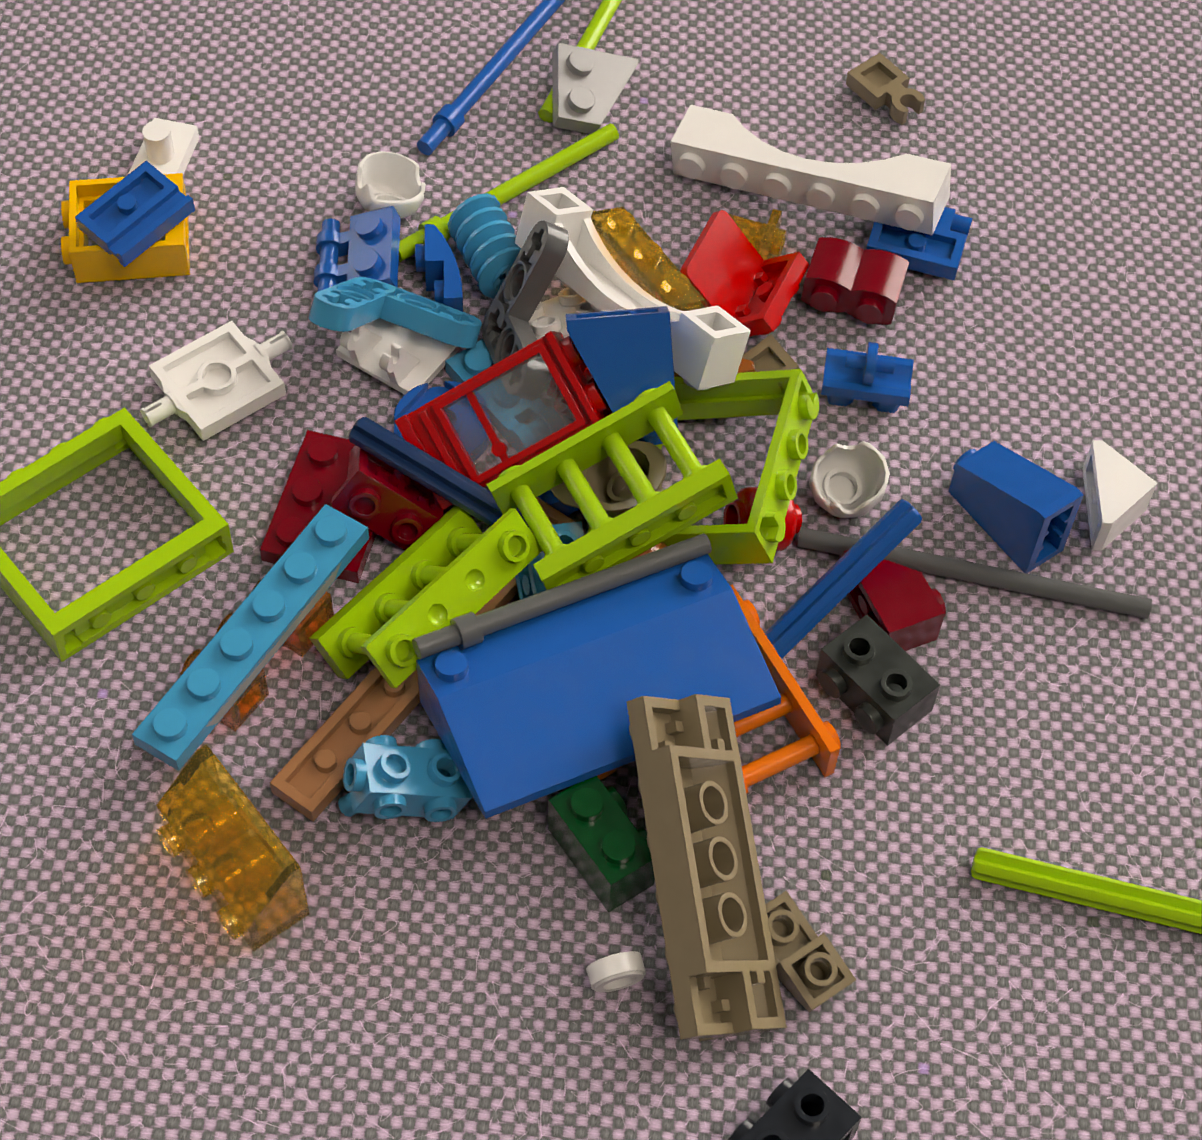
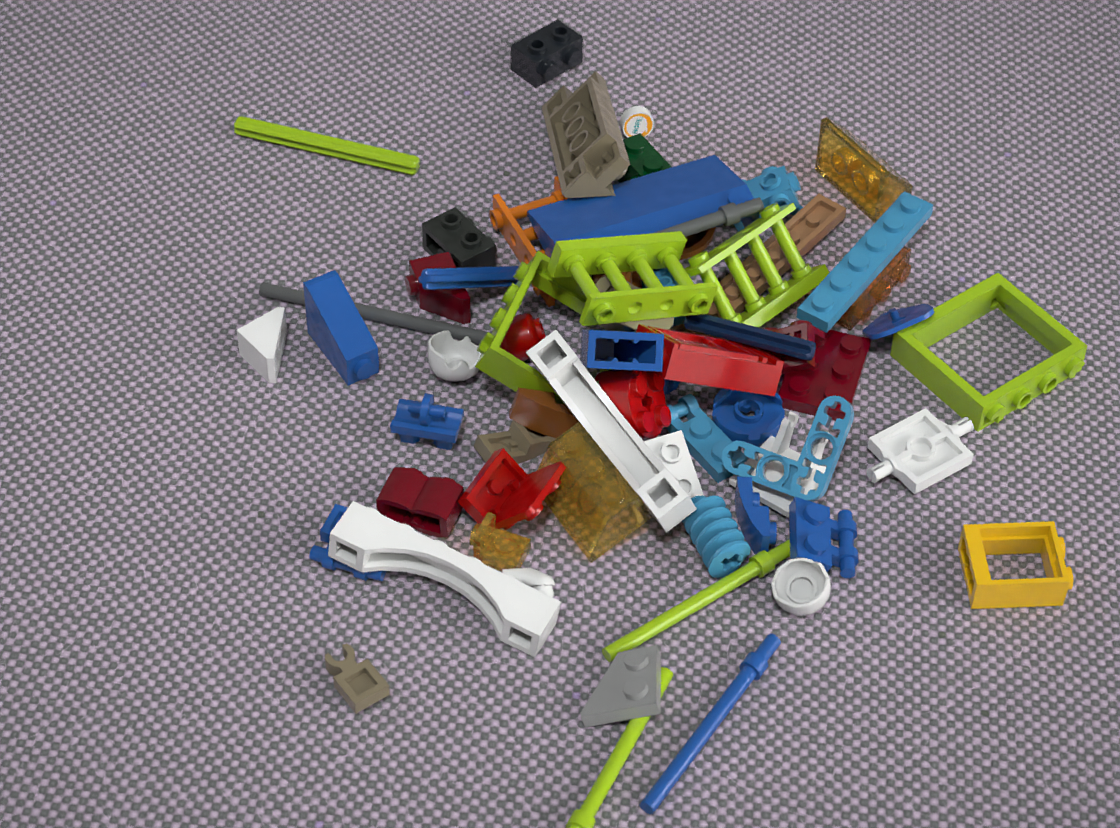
camera: 175 degrees left, 10 degrees down
(135, 213) = (1006, 534): blue plate -> none
(167, 146) = (1000, 641): white tile -> none
(223, 572) = (896, 320): none -> blue piece
(508, 317) = (692, 451): dark grey beam -> none
(703, 202) = (533, 578): none -> white arm
(803, 960) = (528, 131): dark tan slope -> none

